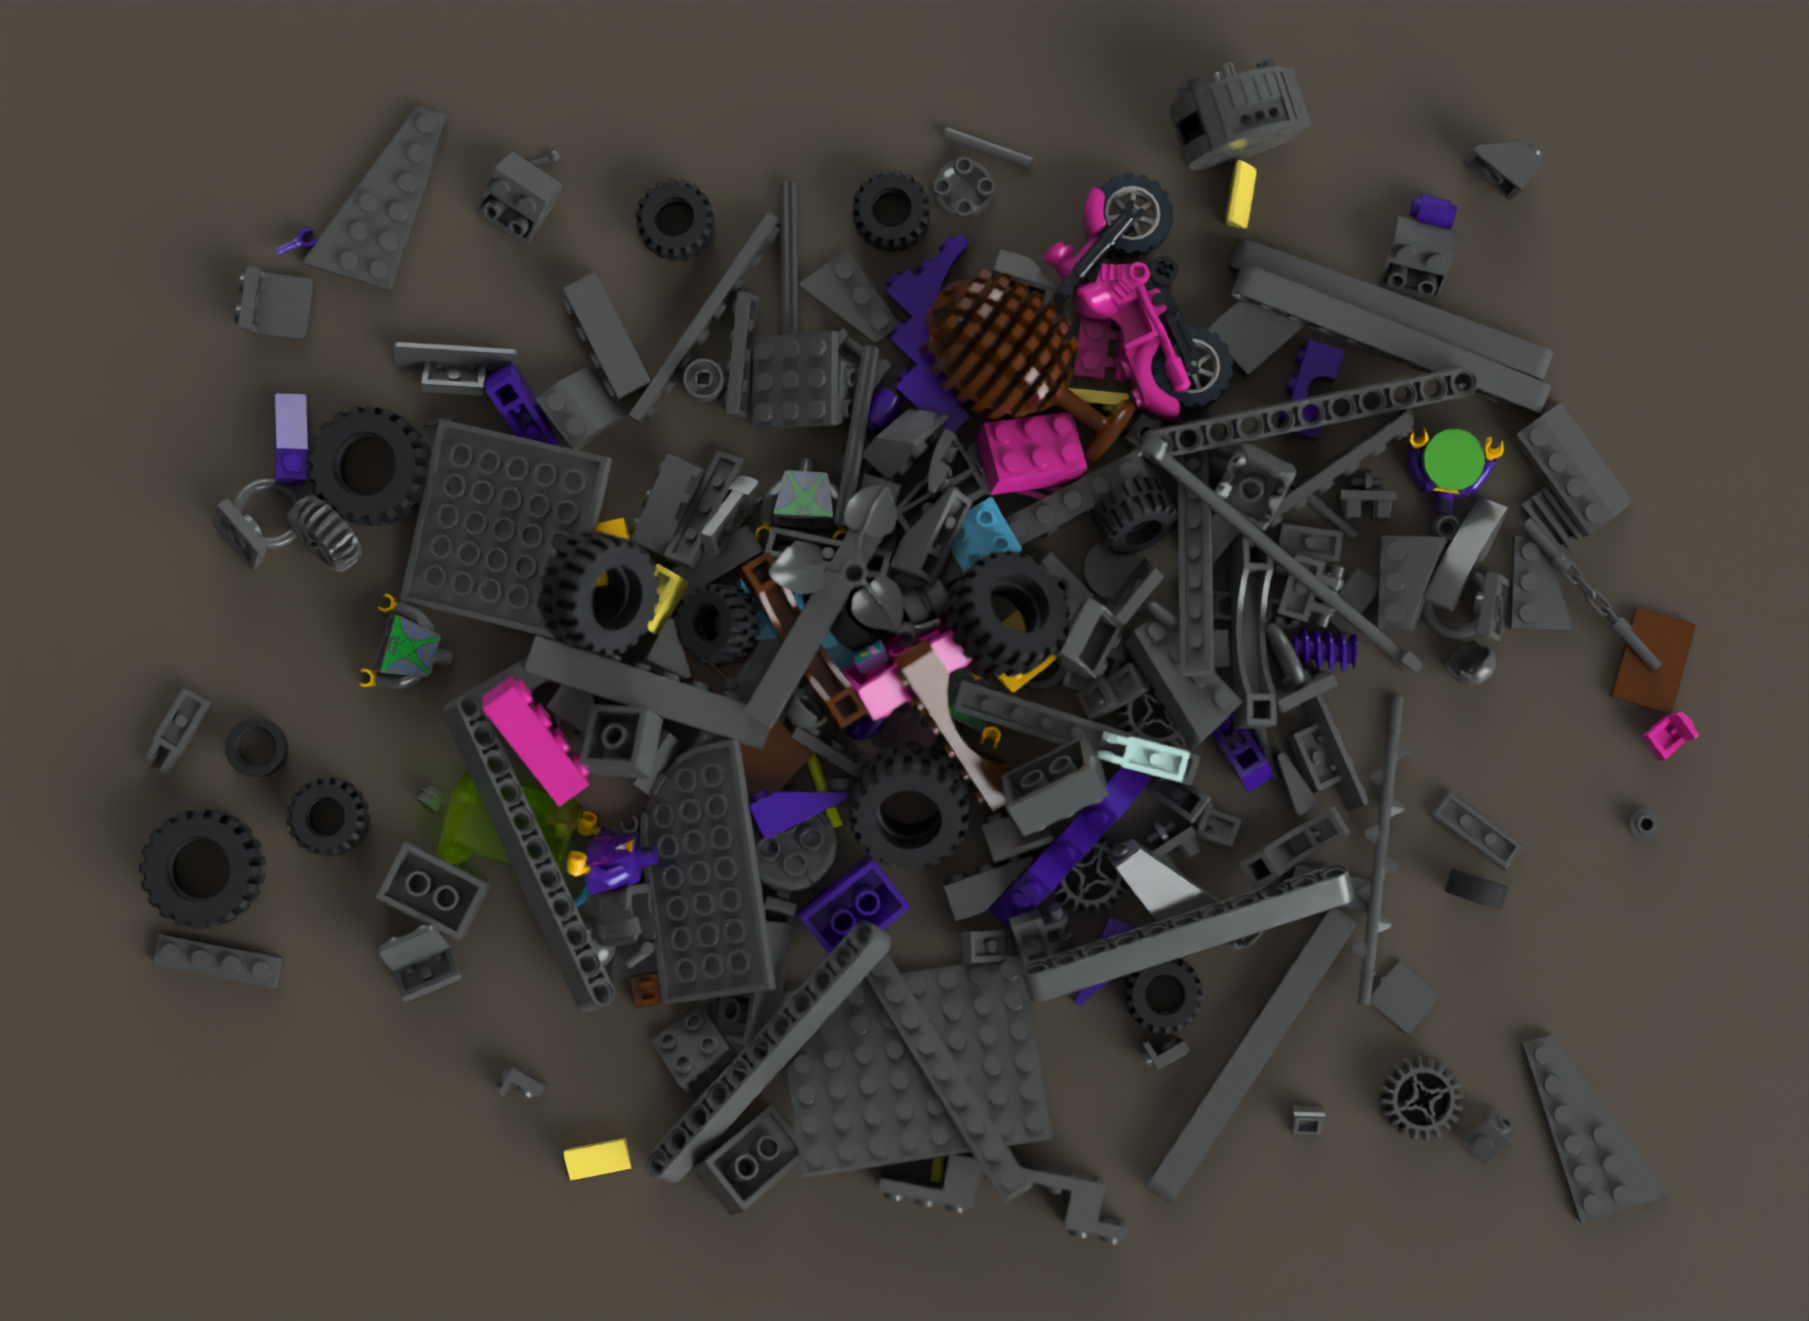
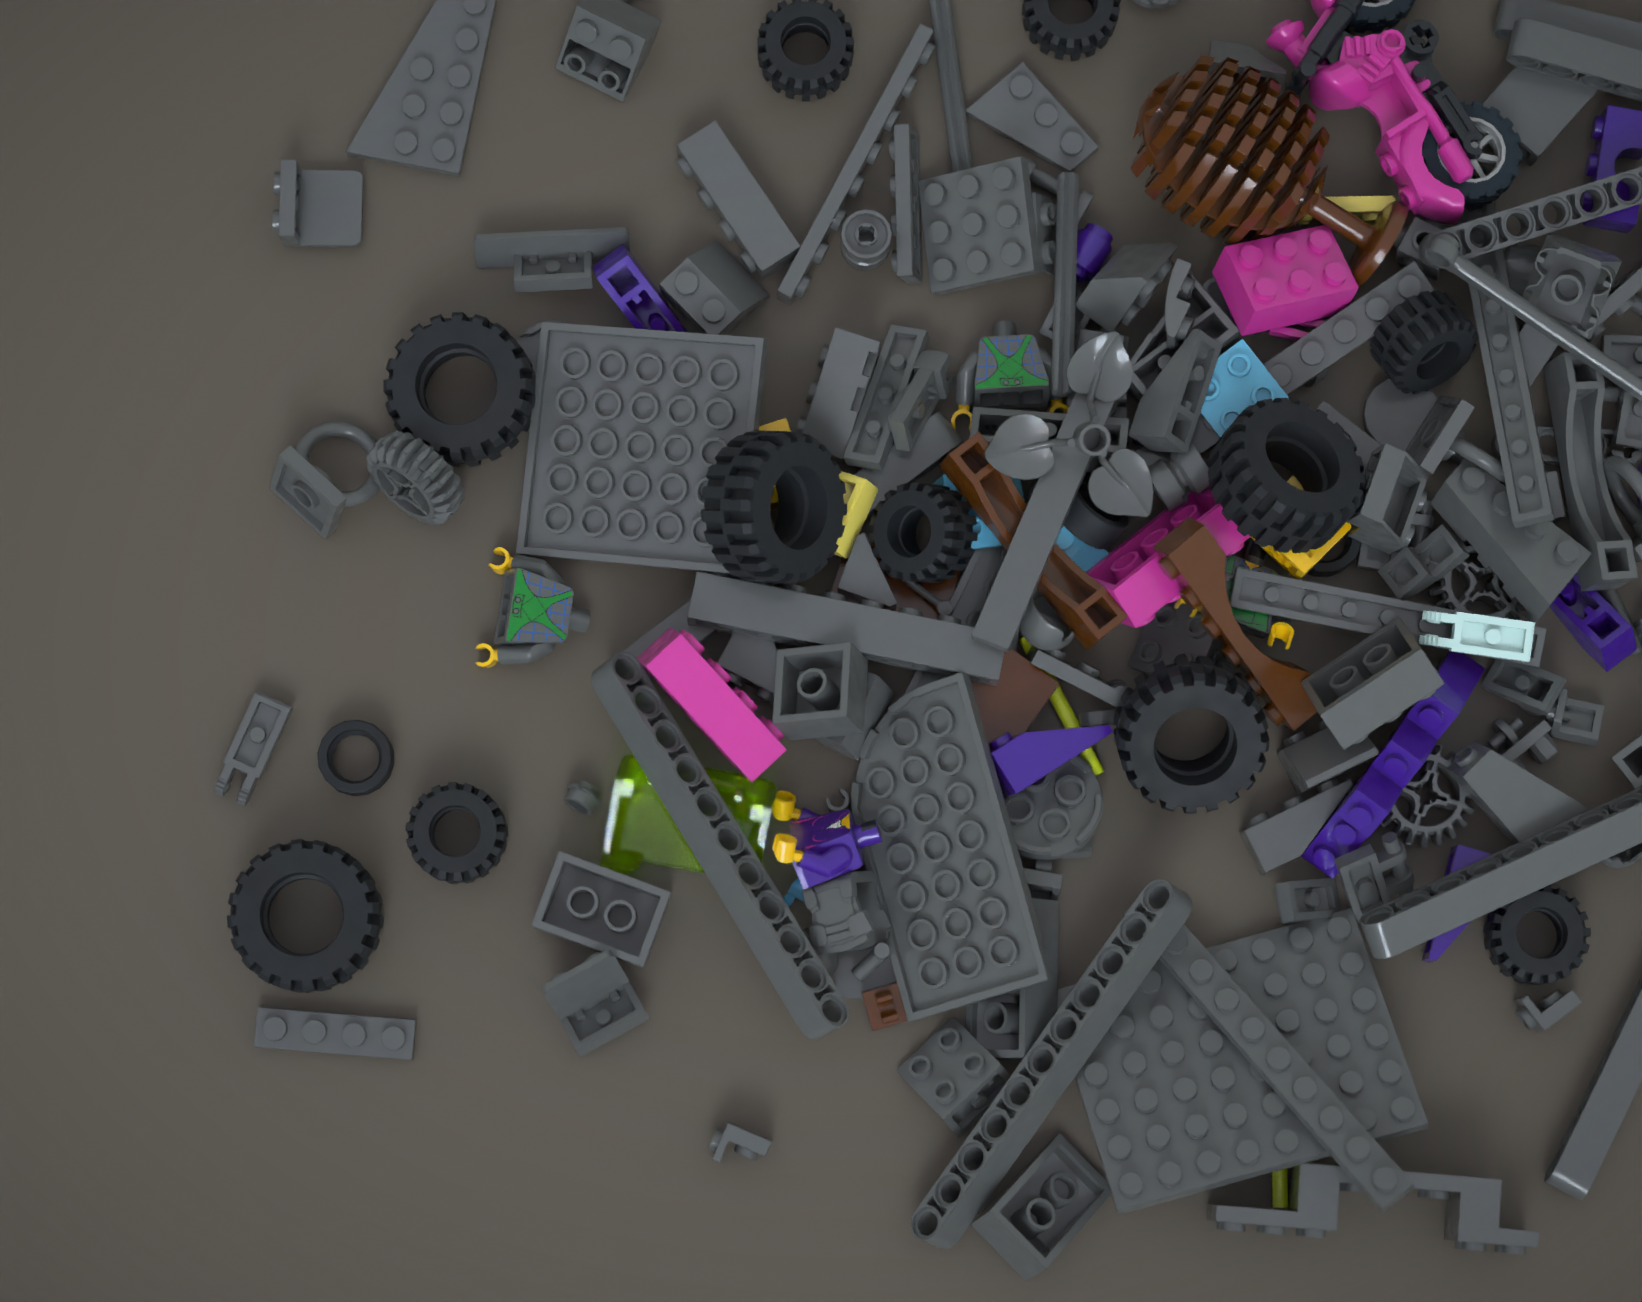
camera: 10 degrees left, 5 degrees down
(291, 440) = (357, 372): slope -> none
(296, 243) = (338, 128): dark purple hand -> none
(597, 1159) = (847, 1229): light yellow slope -> none
(854, 897) = (1130, 858): dark purple slope -> none
(864, 728) = (1119, 647): dark purple arm -> none
(871, 656) = (1120, 551): tile -> none
(913, 630) = (1161, 509): dark grey hand -> none
(914, 297) = (1114, 113): dark purple arch -> none
(1093, 348) = (1342, 149): dark pink plate -> none

